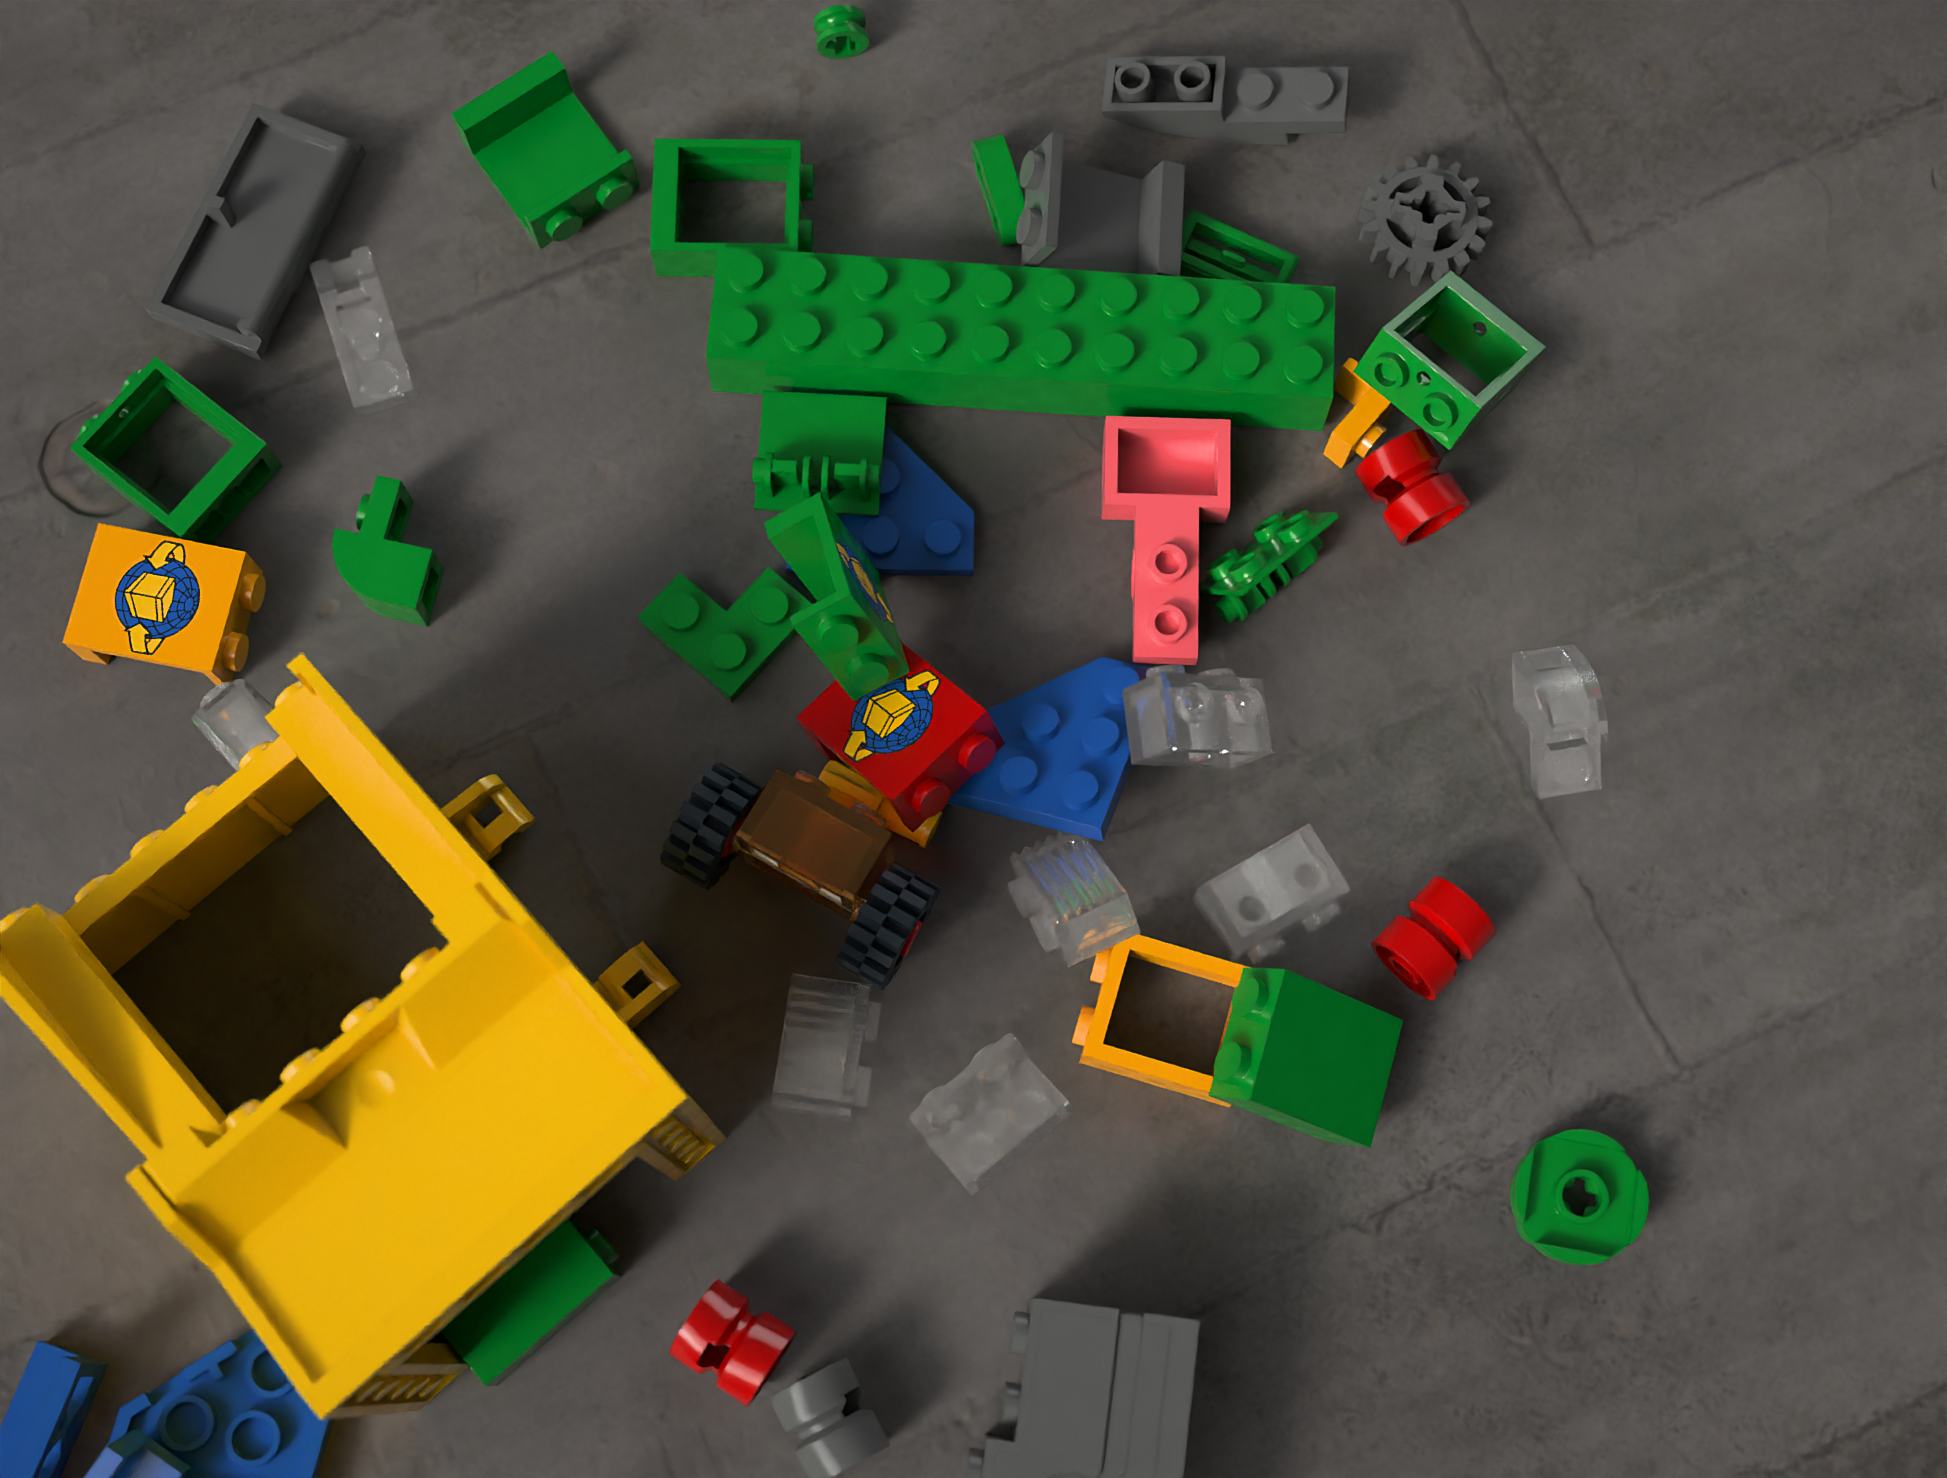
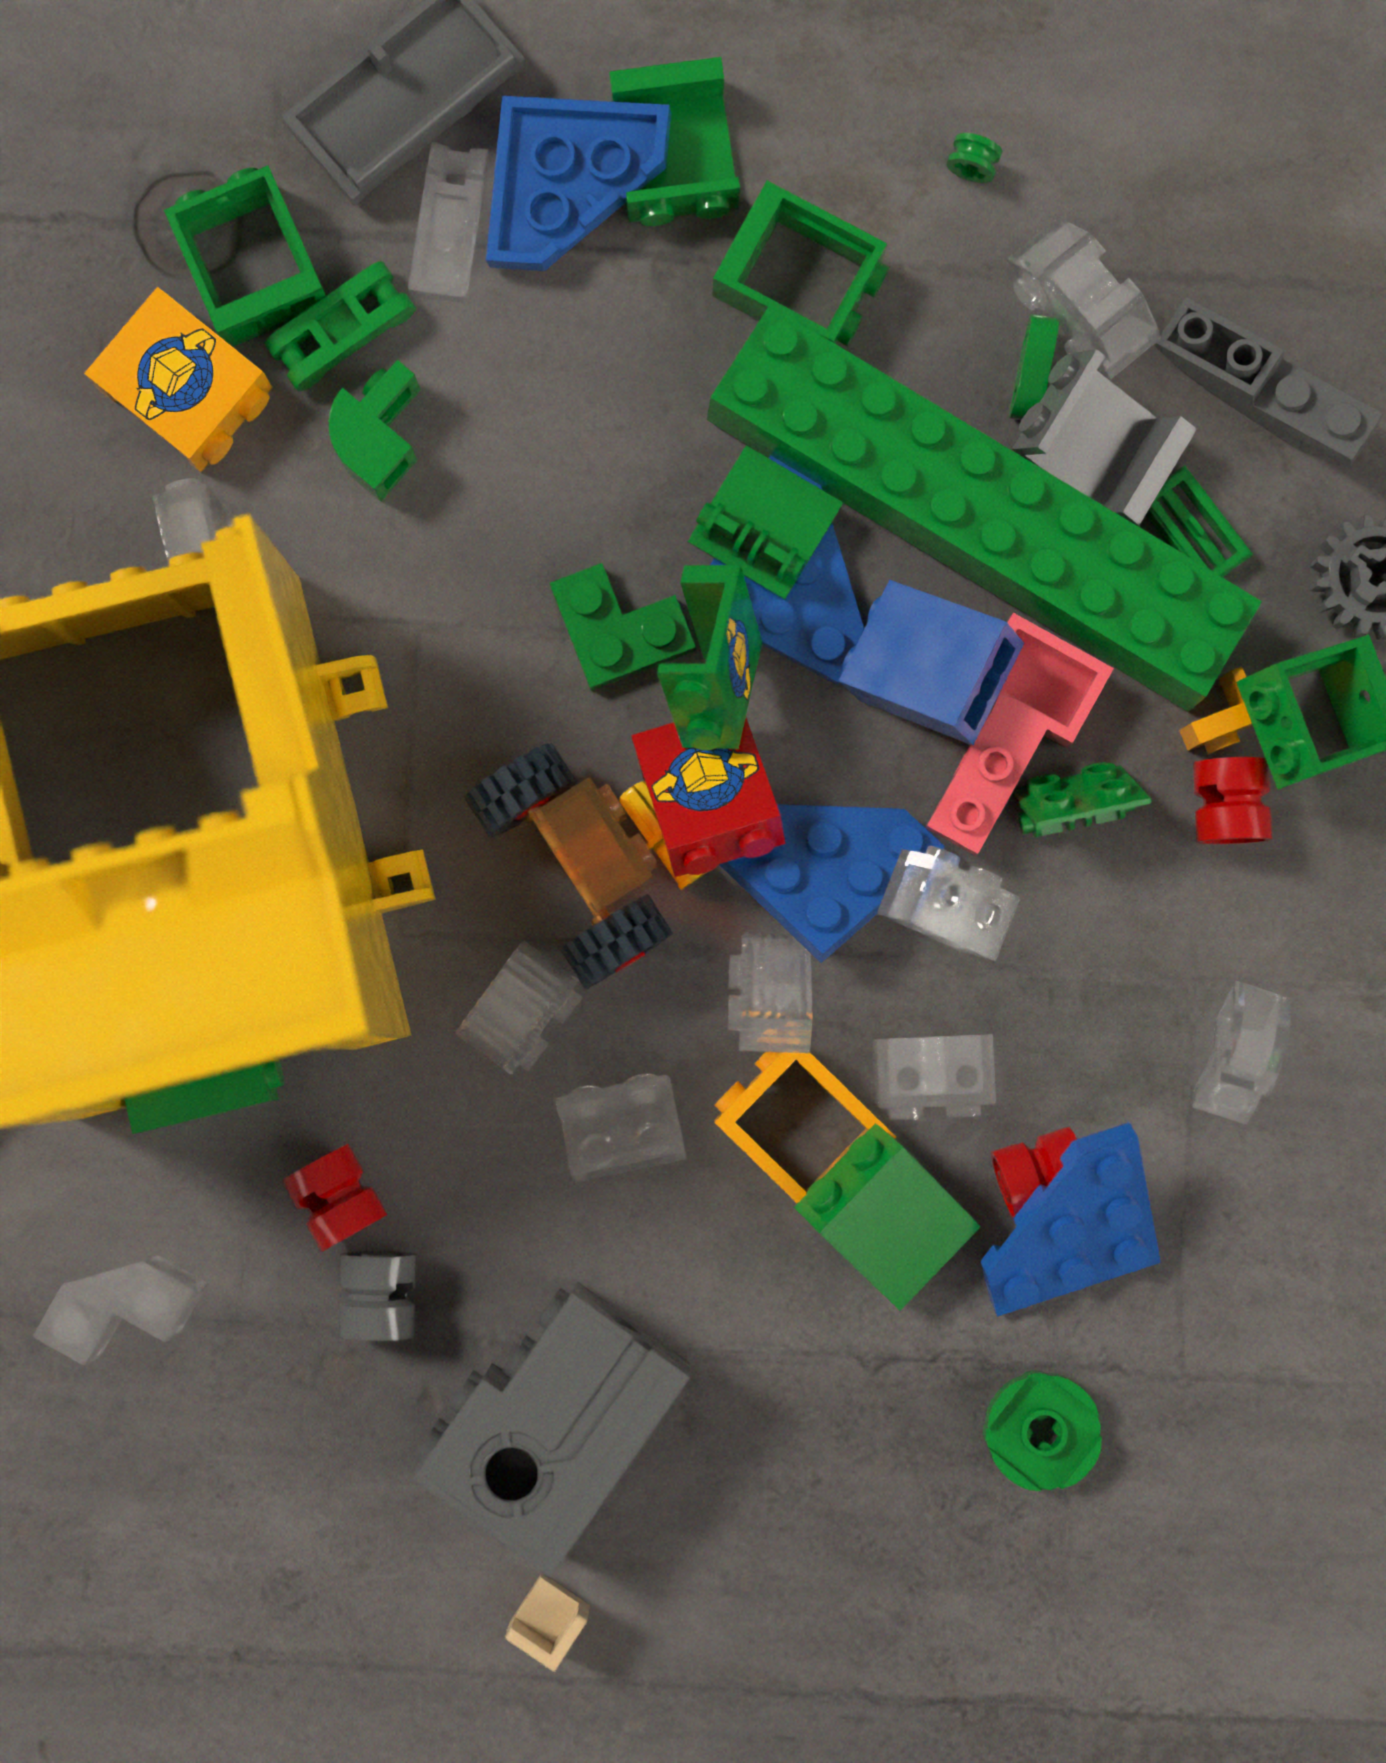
camera: 25 degrees right, 10 degrees up
(301, 477) = (339, 325): none -> green plate
(456, 228) = (566, 171): none -> blue plate
(990, 93) = (1067, 280): none -> clear brick
(1052, 499) = (931, 661): none -> blue brick
(1500, 970) = (1080, 1228): none -> blue plate

